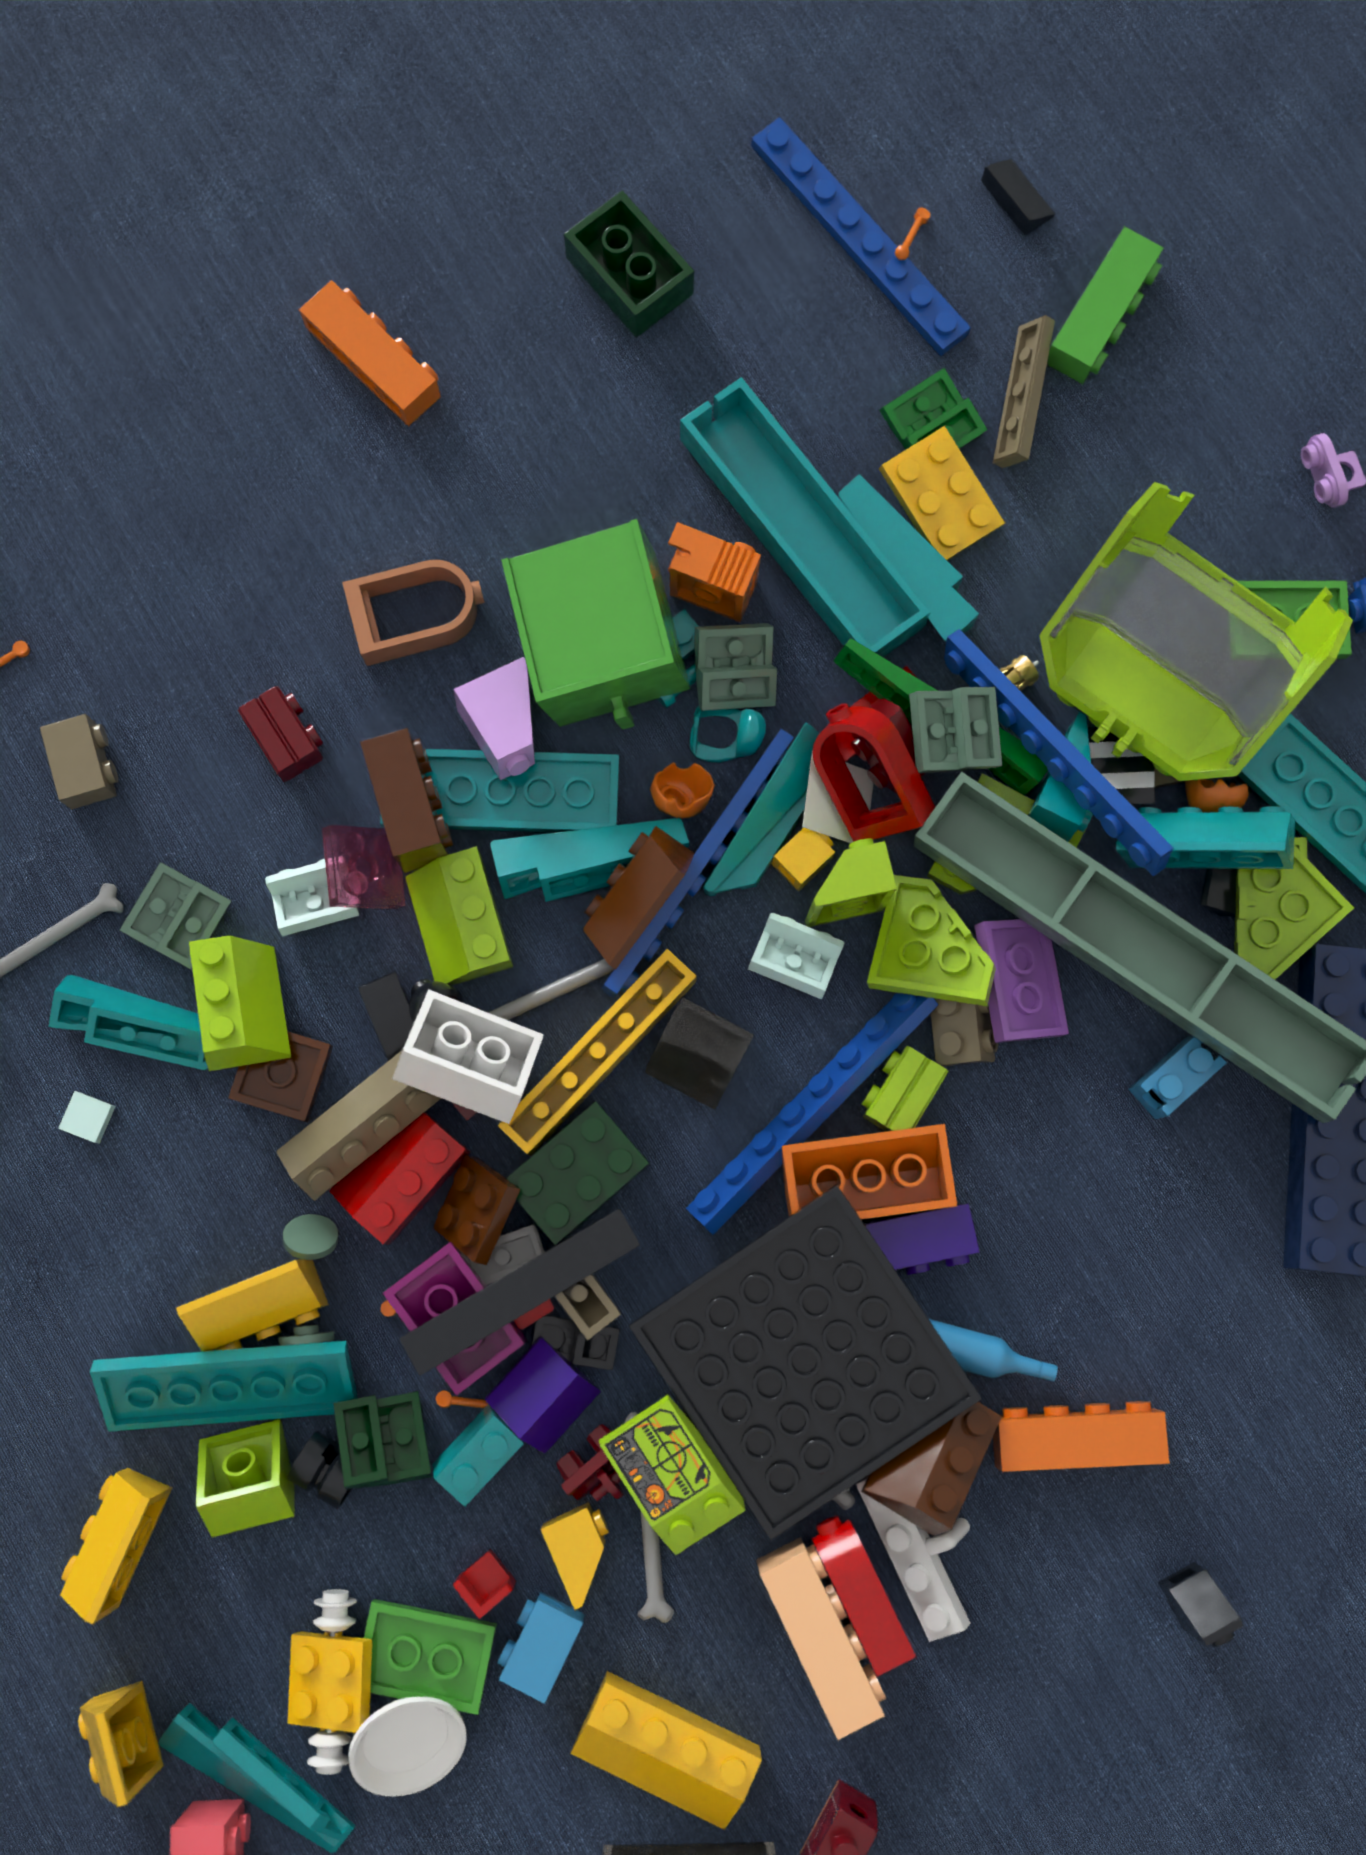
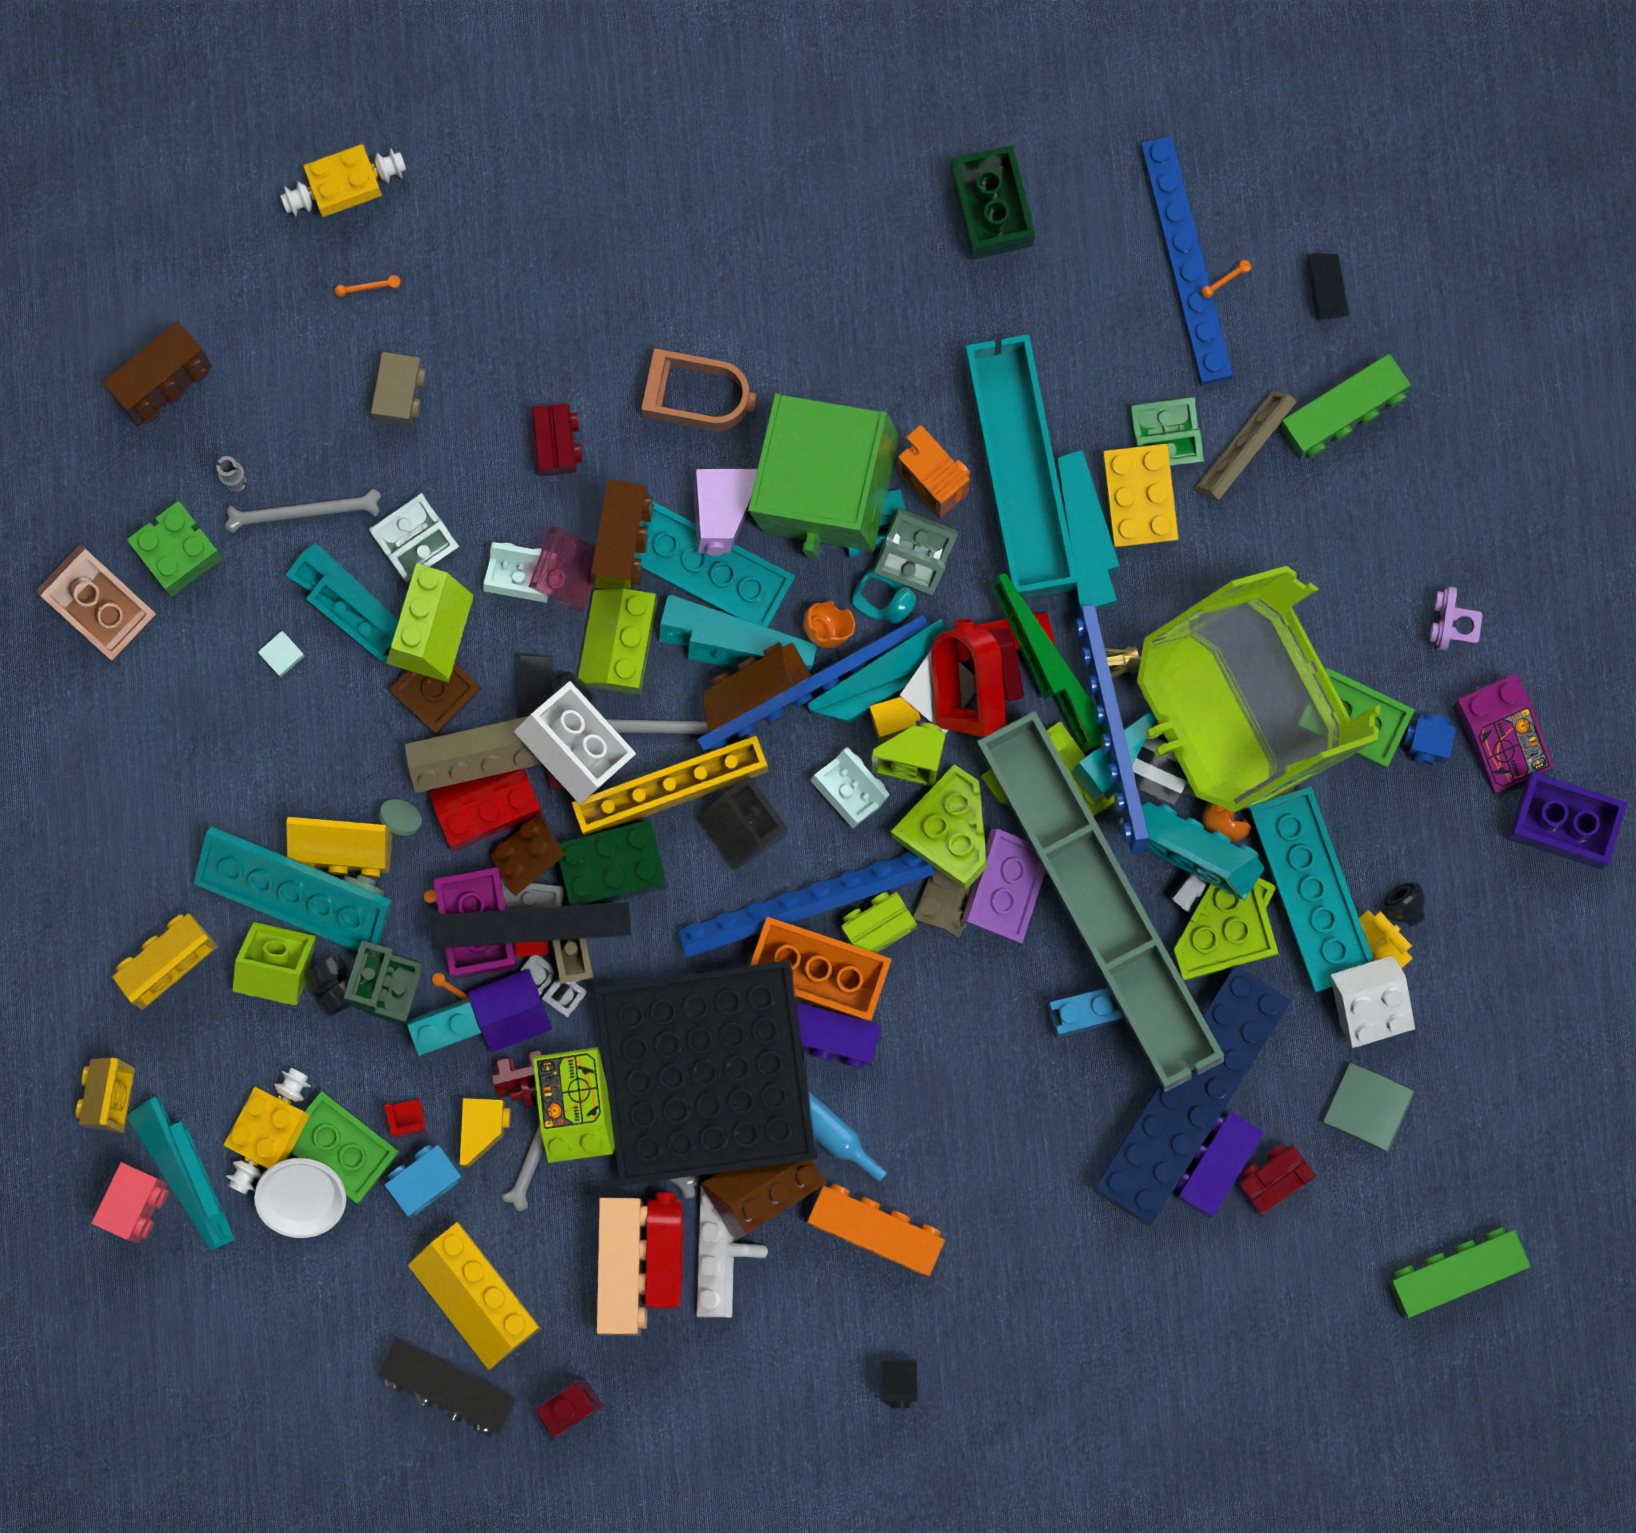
camera: 30 degrees right, 0 degrees up
(371, 352) = (762, 178): orange brick -> none
(955, 729) = (1047, 678): sand green slope -> none

